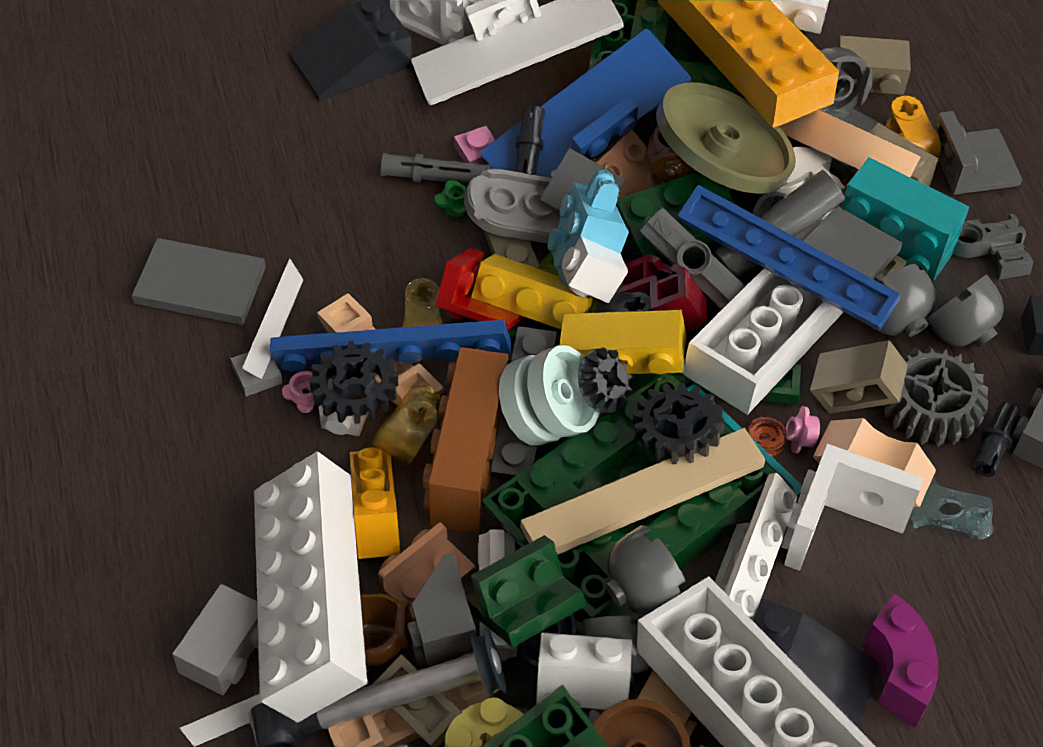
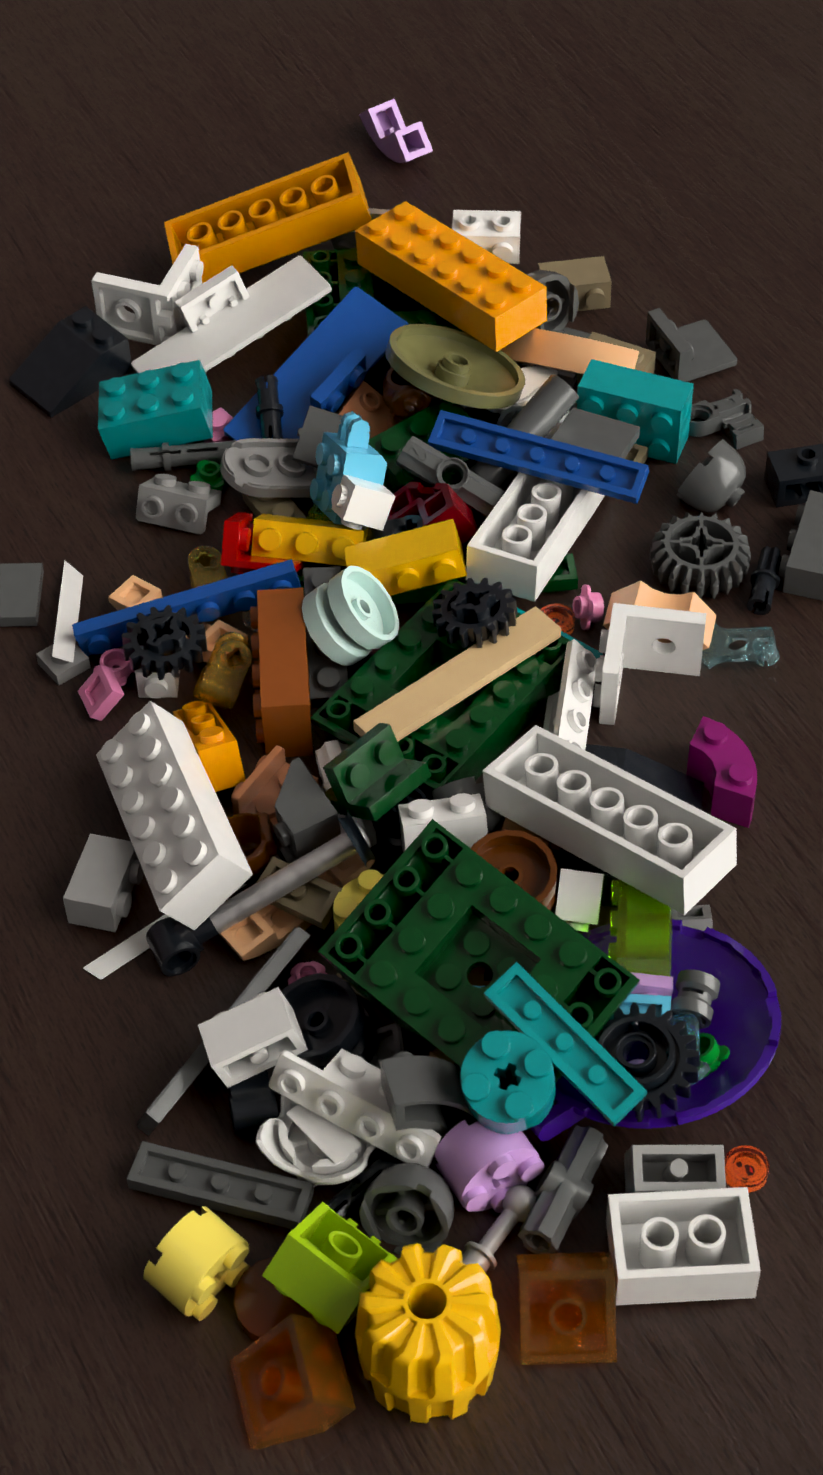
camera: 10 degrees left, 5 degrees down
(281, 417) = (100, 692): none -> bright pink plate
(414, 221) = (176, 503): none -> light grey bracket
(418, 116) = (155, 408): none -> teal brick
(594, 386) = (389, 597): black gear -> none
(642, 573) = (475, 735): dark grey cylinder -> none
(859, 377) = (628, 550): dark tan brick -> none
(913, 124) = (624, 326): light orange piece -> none
(915, 301) = (662, 481): dark grey cylinder -> none

